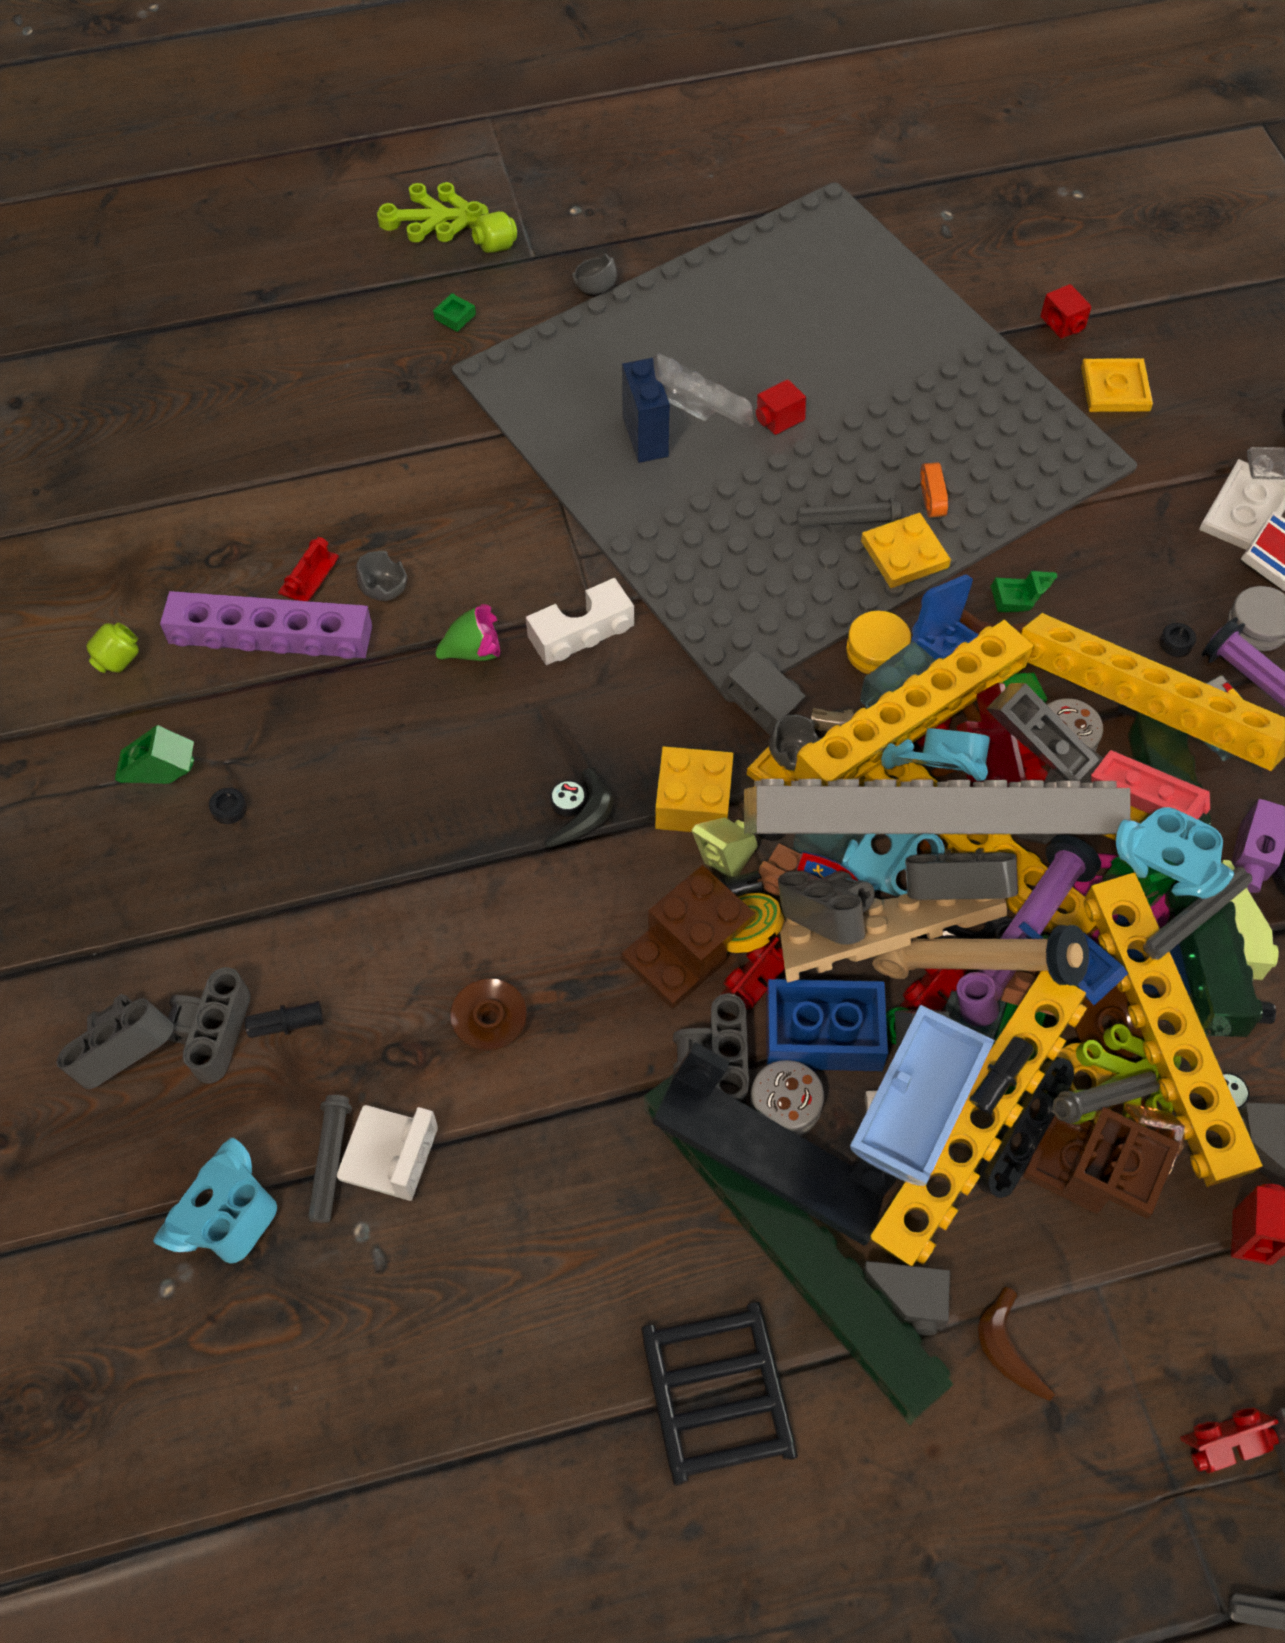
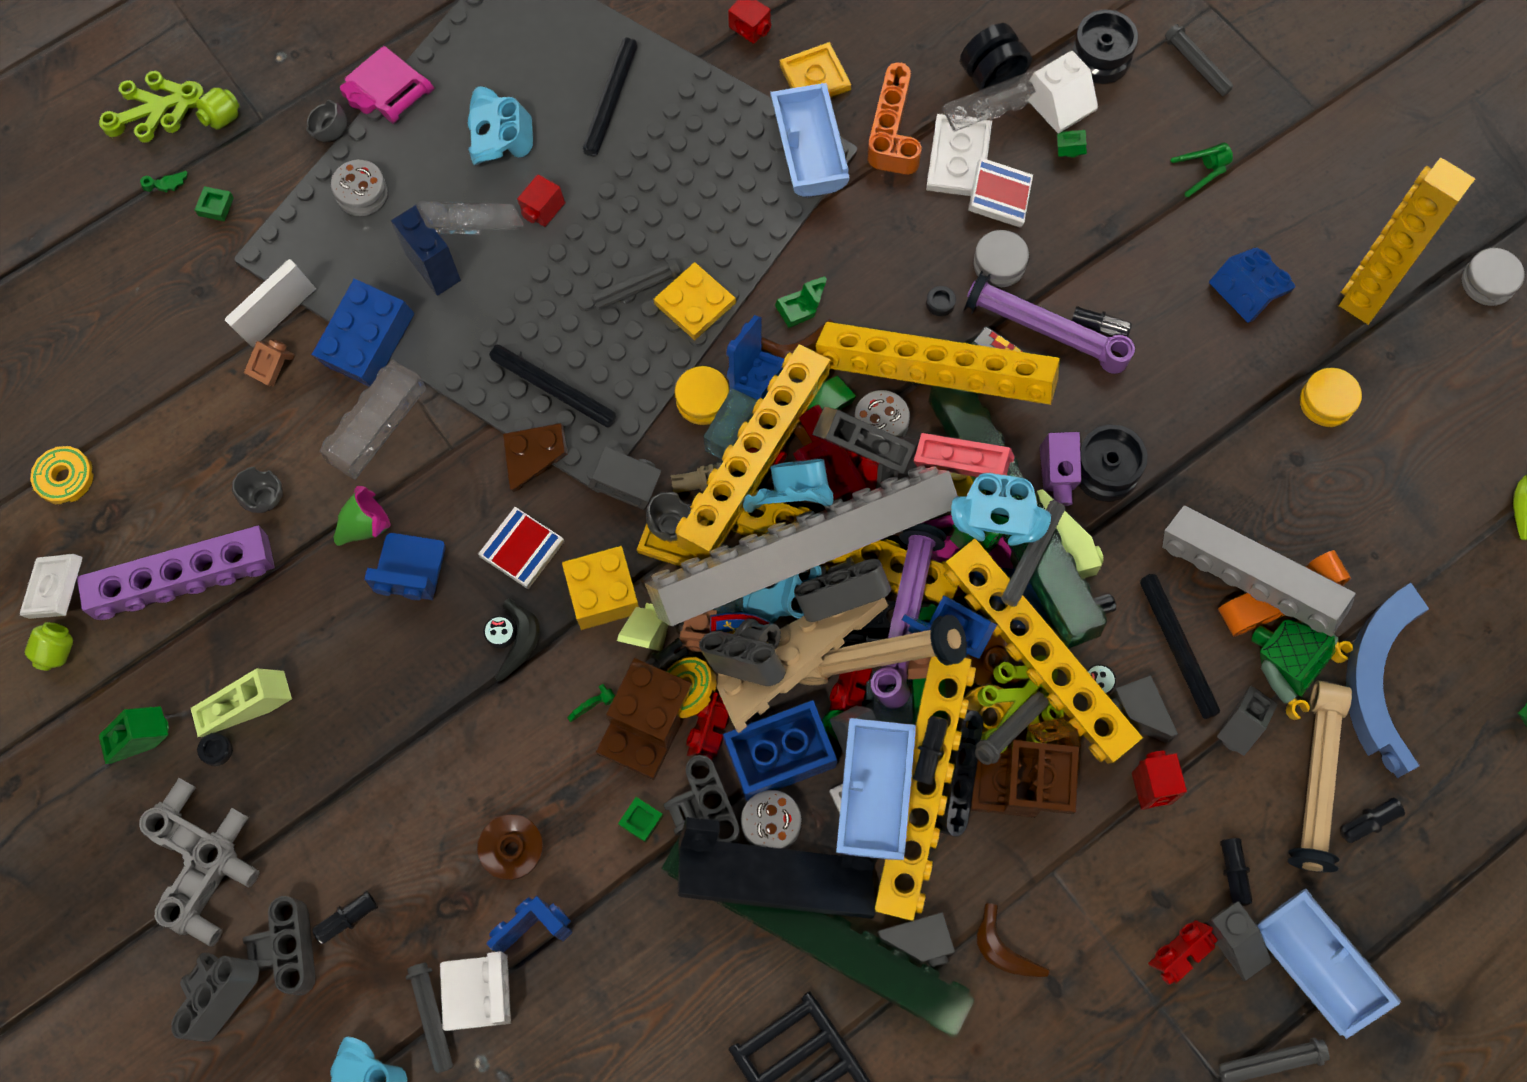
camera: 20 degrees left, 10 degrees up
(140, 594) = (51, 586): none -> white tile
(156, 919) = (198, 877): none -> light grey pin
(194, 488) = (50, 464): none -> yellow tile
(278, 766) = (241, 701): none -> yellowish green slope
(309, 571) = (191, 508): red hinge -> none
(416, 282) = (165, 184): none -> green piece
(443, 464) = (267, 361): none -> nougat bracket
(469, 410) = (270, 303): none -> white tile
(471, 1092) = (527, 915): none -> blue bracket
(499, 701) = (407, 567): none -> blue bracket
(524, 551) = (372, 419): none -> clear brick
(549, 468) = (363, 332): none -> blue brick
(559, 636) = (435, 488): white arch -> none
(602, 339) = (359, 187): none -> light grey head
(625, 725) = (521, 547): none -> tile
(633, 903) = (606, 697): none -> green piece
(641, 1041) = (640, 819): none -> green plate
(665, 256) = (380, 82): none -> dark pink piece
(676, 635) = (532, 451): none -> reddish brown wing
(723, 580) = (552, 385): none -> black axle
(775, 331) = (508, 126): none -> medium azure piece
(890, 338) = (609, 97): none -> black axle
(934, 490) = (698, 236): orange beam -> none
(1090, 437) = (810, 139): none -> light blue container
(1172, 470) = (888, 115): none -> orange beam

